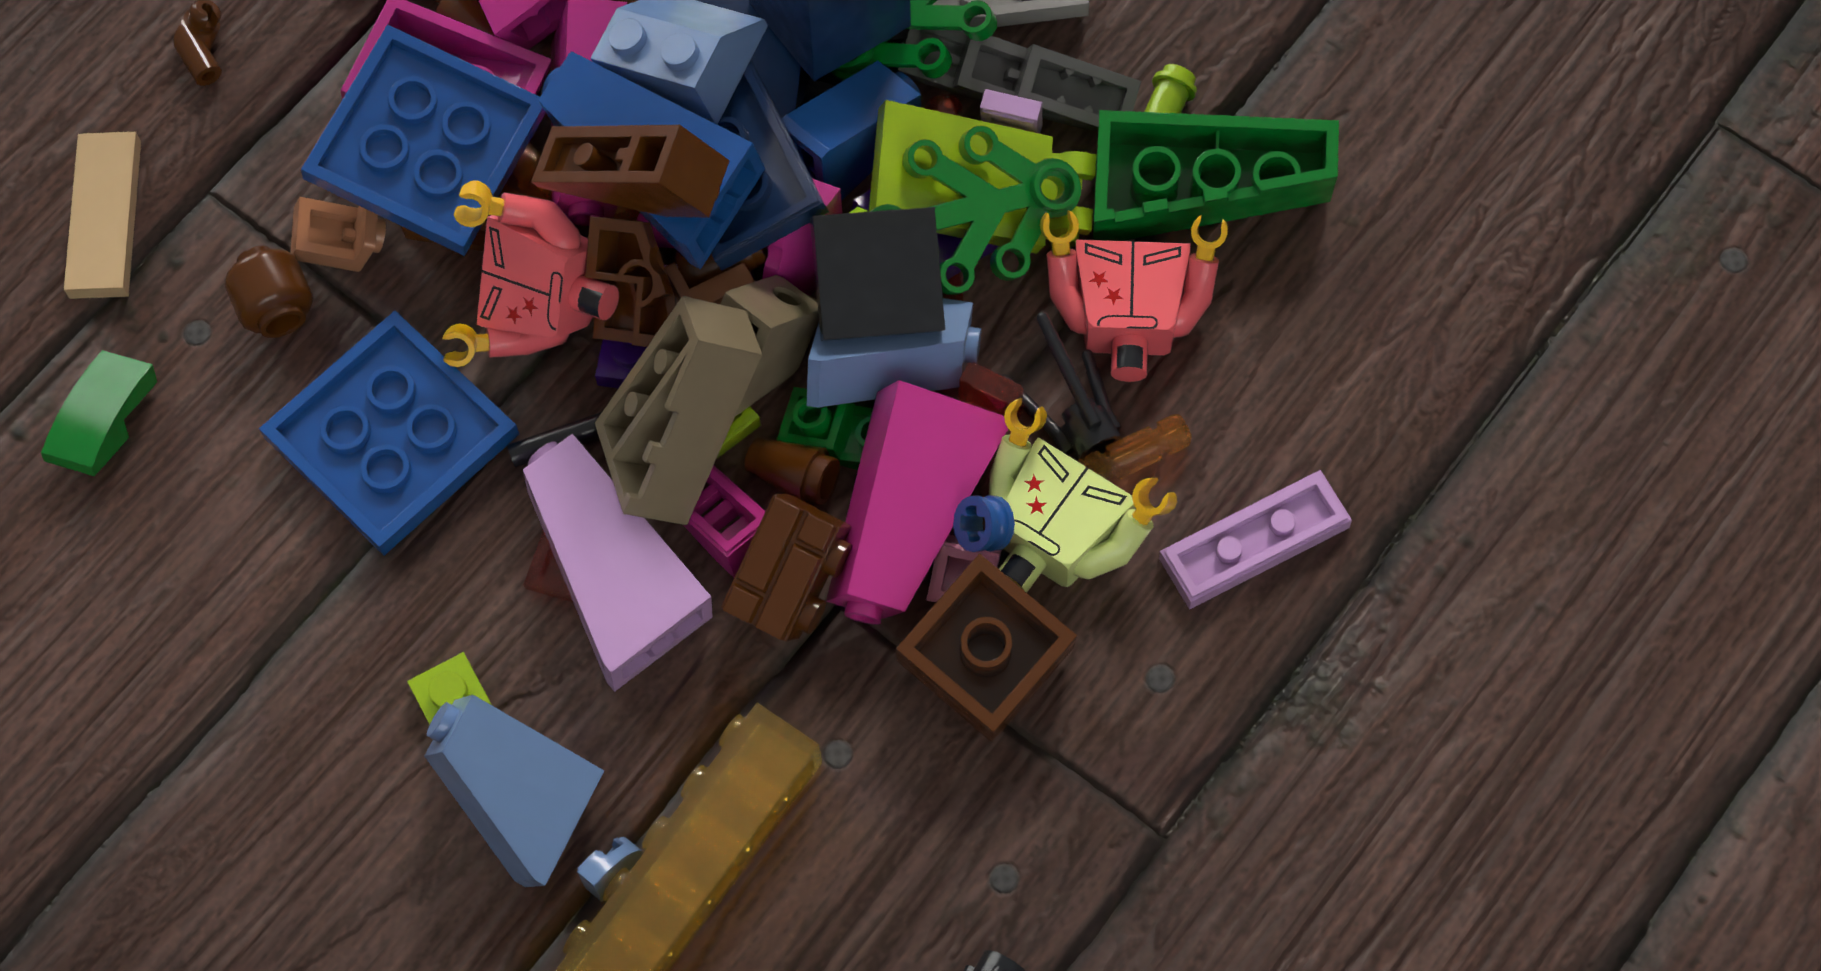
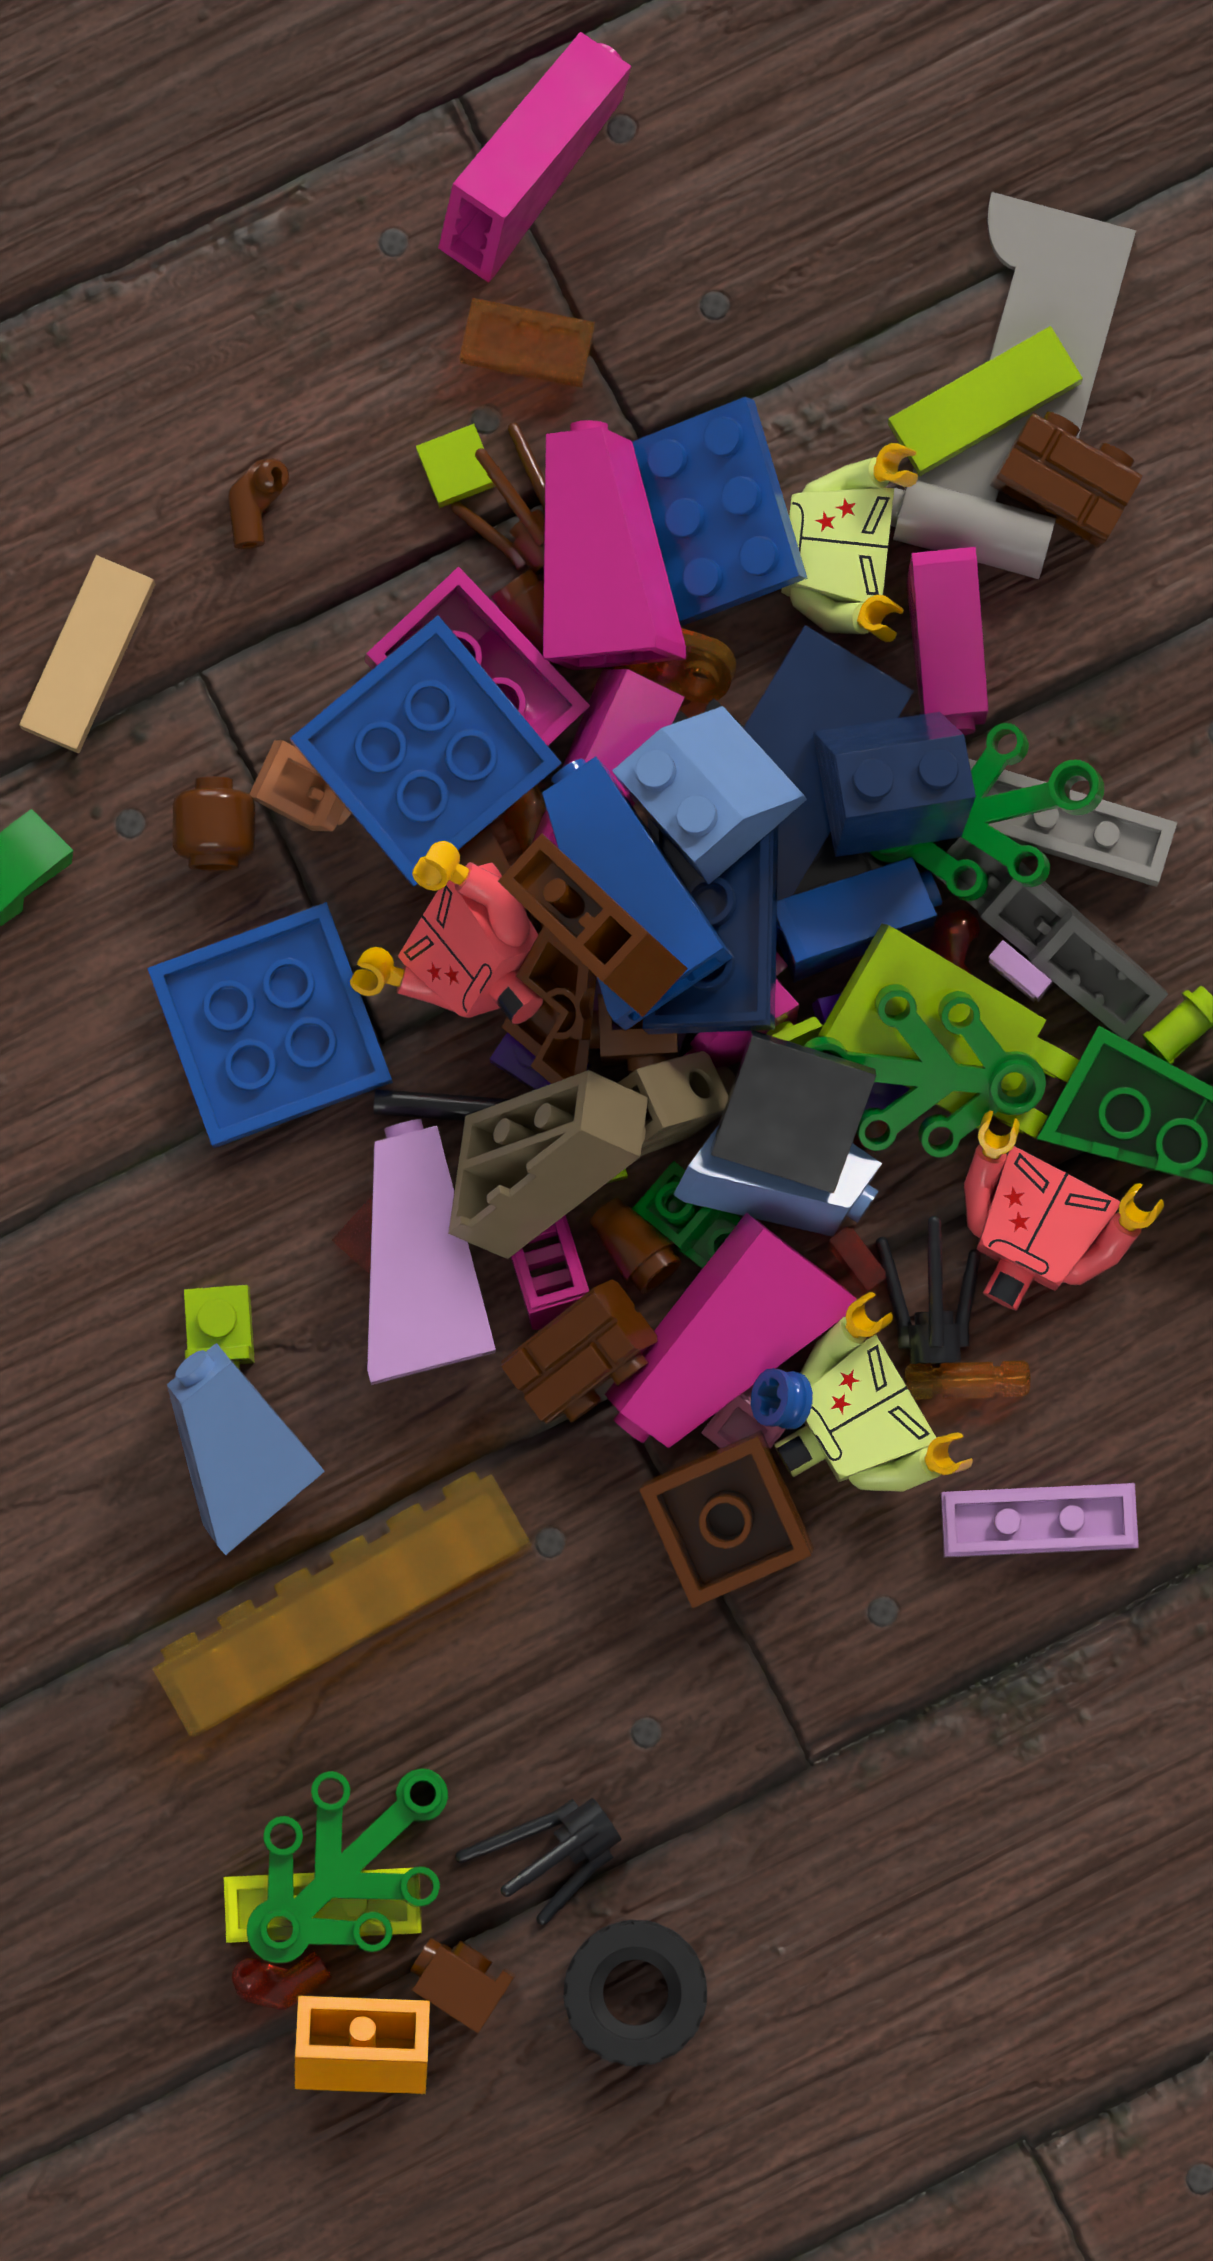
camera: 30 degrees right, 15 degrees up
(600, 868) = (291, 1557): medium blue tile -> none

